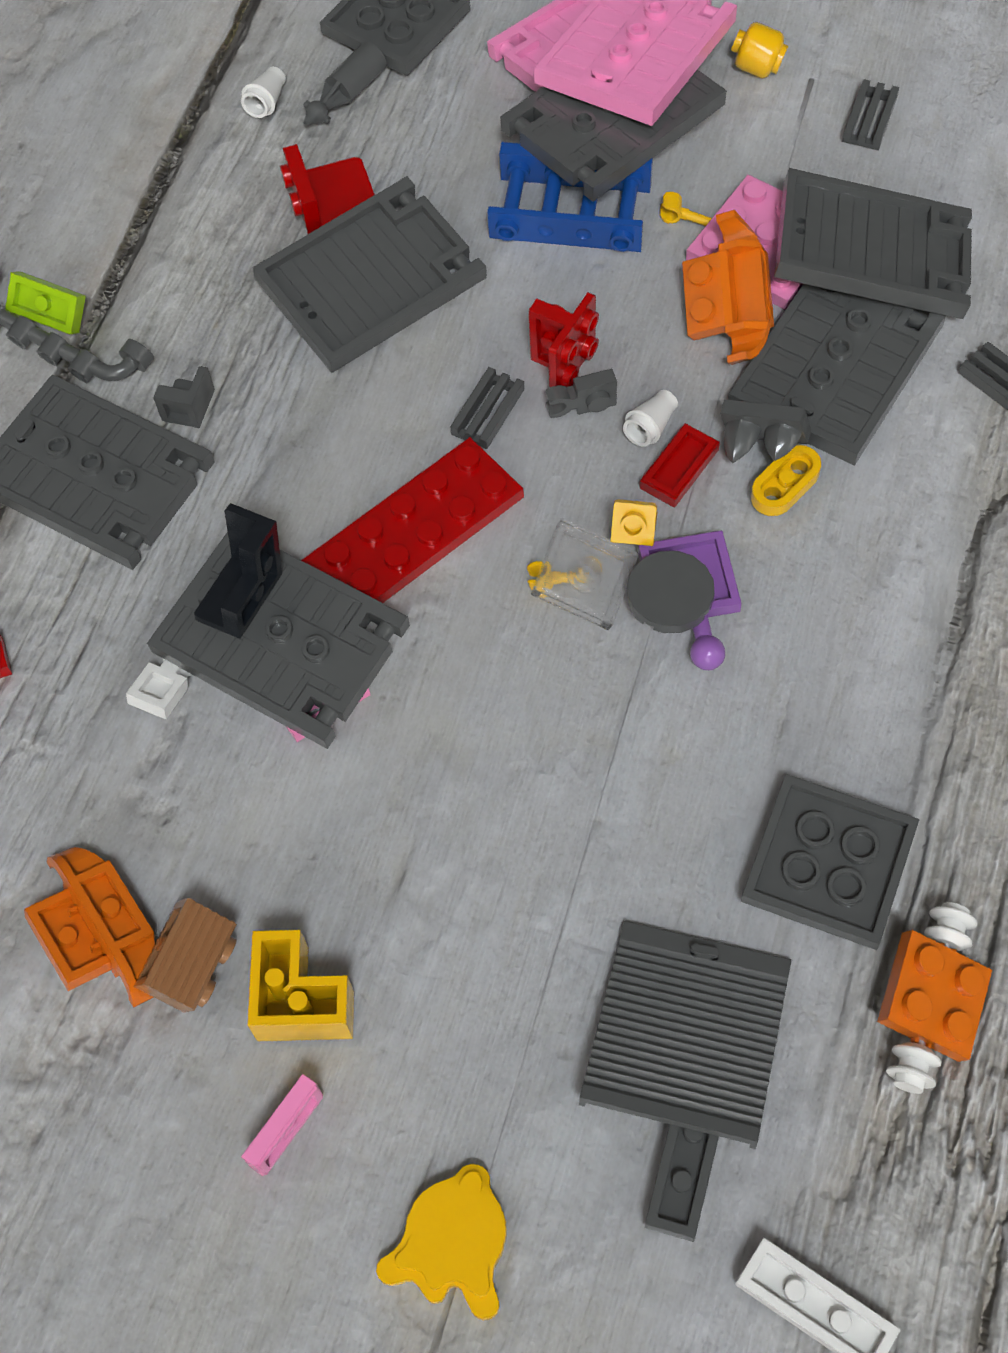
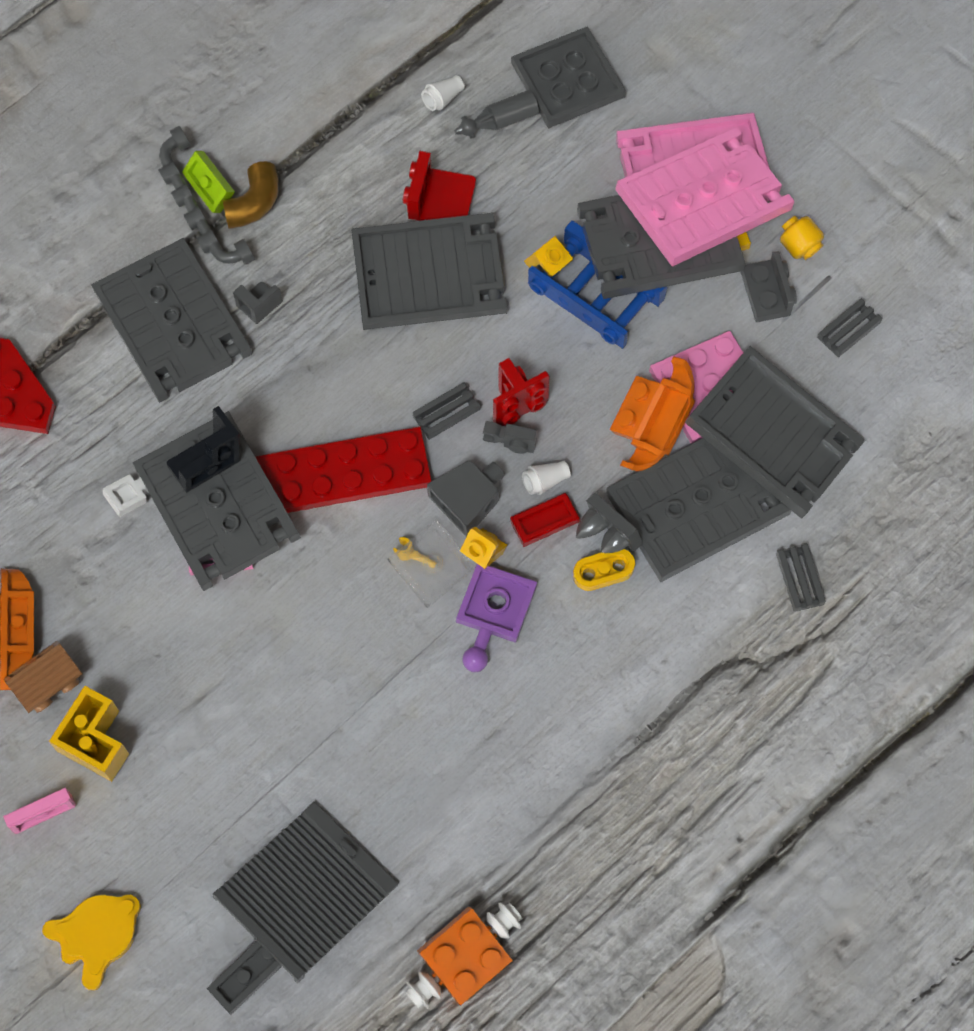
camera: 25 degrees right, 5 degrees up
(117, 295) = (257, 199): none -> pearl gold cylinder
(500, 188) = (550, 257): none -> yellow bracket
(573, 481) = (466, 494): none -> dark grey torso
(670, 591) = (474, 606): dark grey tile -> none
(672, 210) = (661, 331): yellow hand -> none
(760, 115) = (769, 288): none -> dark grey bracket
(830, 861) = (460, 836): dark grey plate -> none

